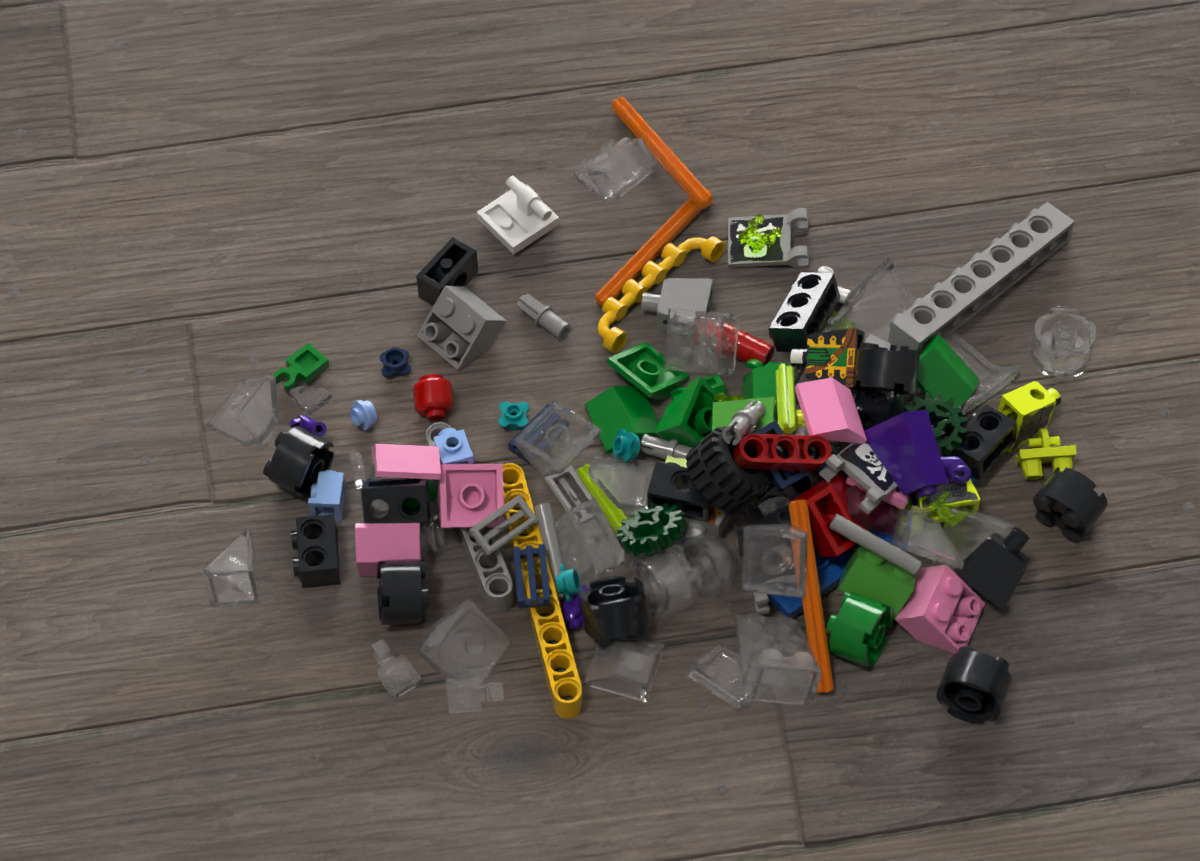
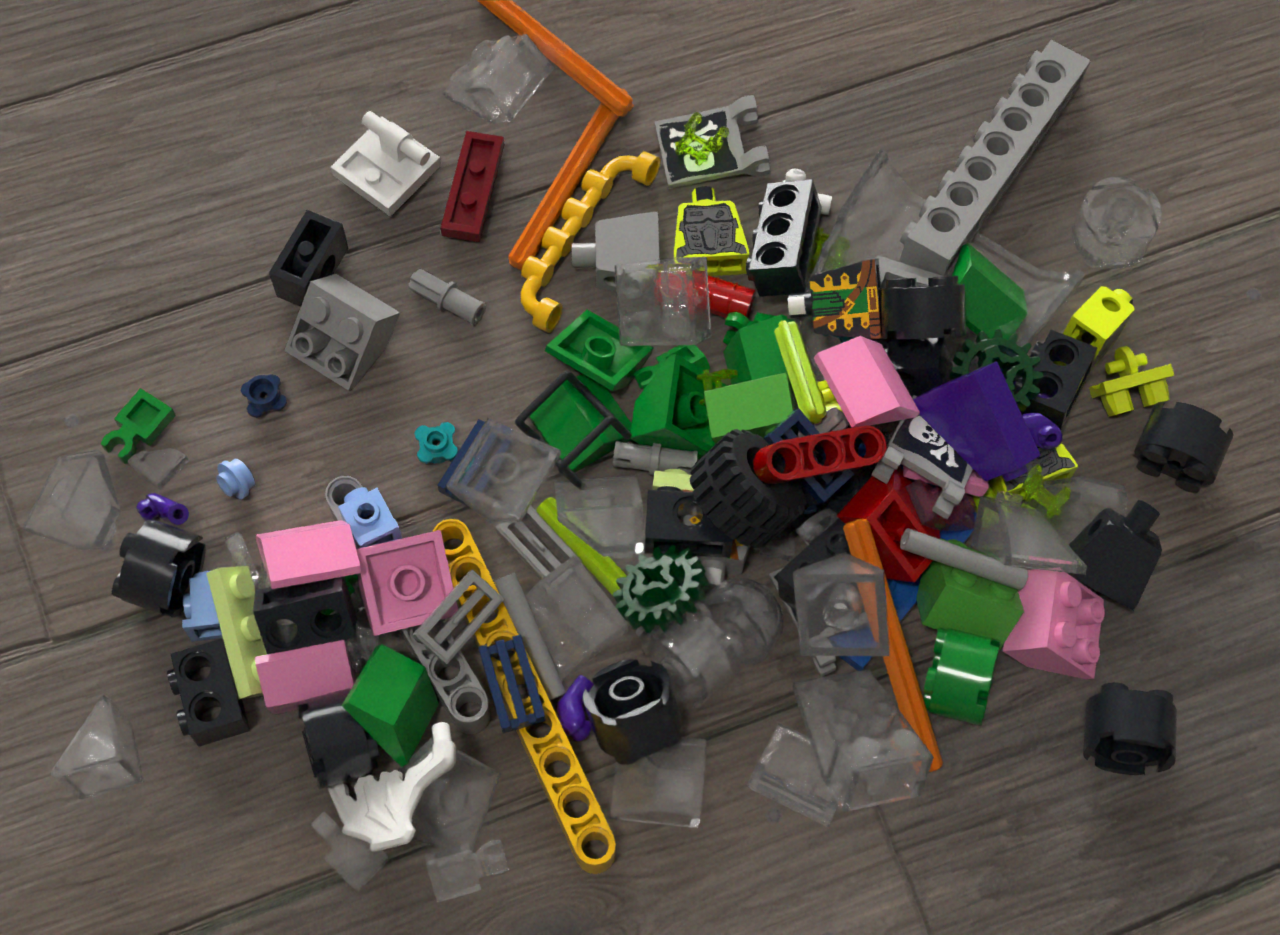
camera: 15 degrees left, 10 degrees up
(348, 508) = (234, 603): none -> yellowish green plate
(426, 639) = (386, 806): none -> white animal
(433, 397) = (324, 437): red head -> none
(446, 573) = (393, 702): none -> green slope
(568, 582) = (561, 680): teal plate -> none
(579, 242) = (472, 186): none -> dark red plate
(626, 445) = (596, 465): teal plate -> none
(639, 411) = (609, 420): none -> black piece
(743, 422) = (758, 421): light grey pin -> none
(751, 300) = (711, 231): none -> torso

